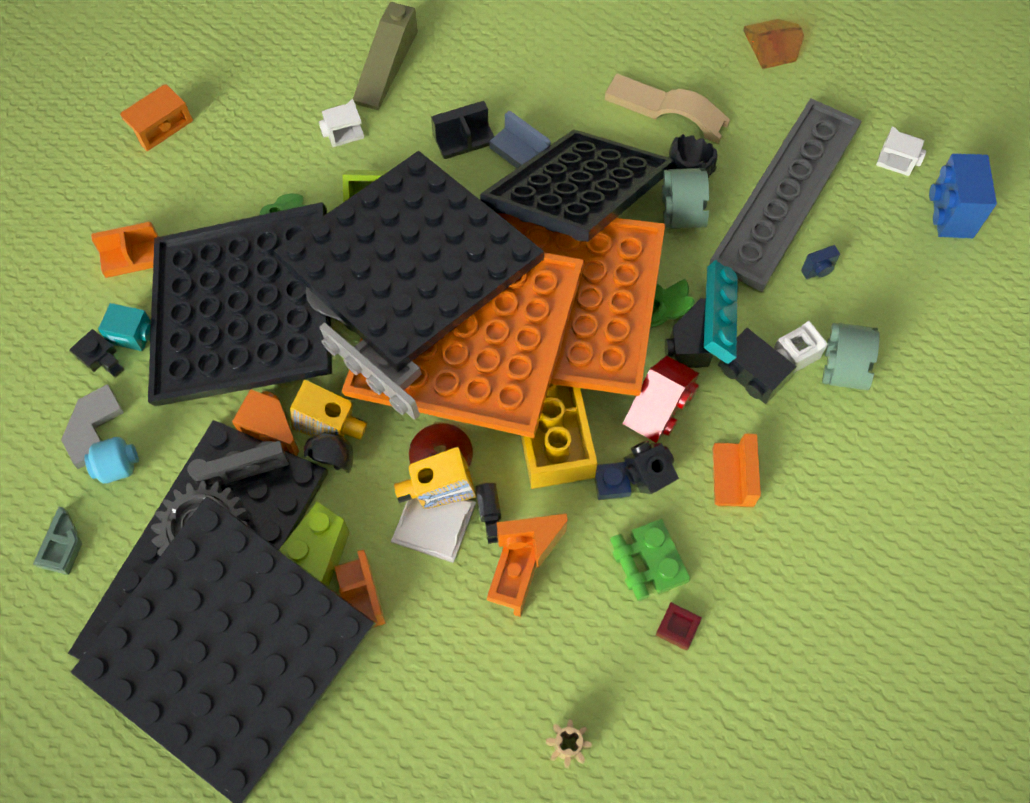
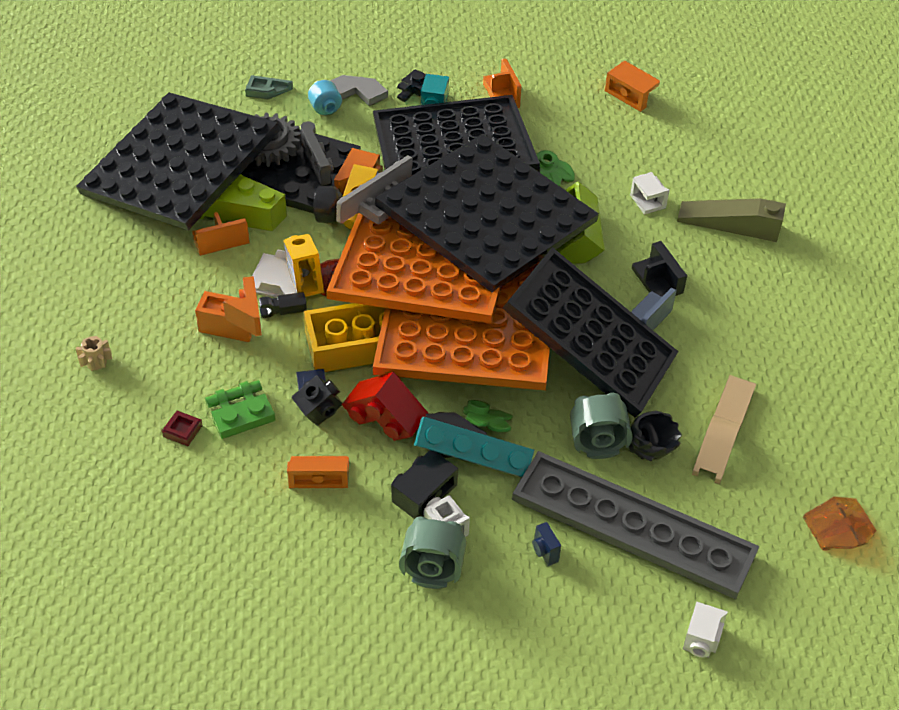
camera: 85 degrees right, 15 degrees down
(963, 196) = (642, 671): blue brick -> none

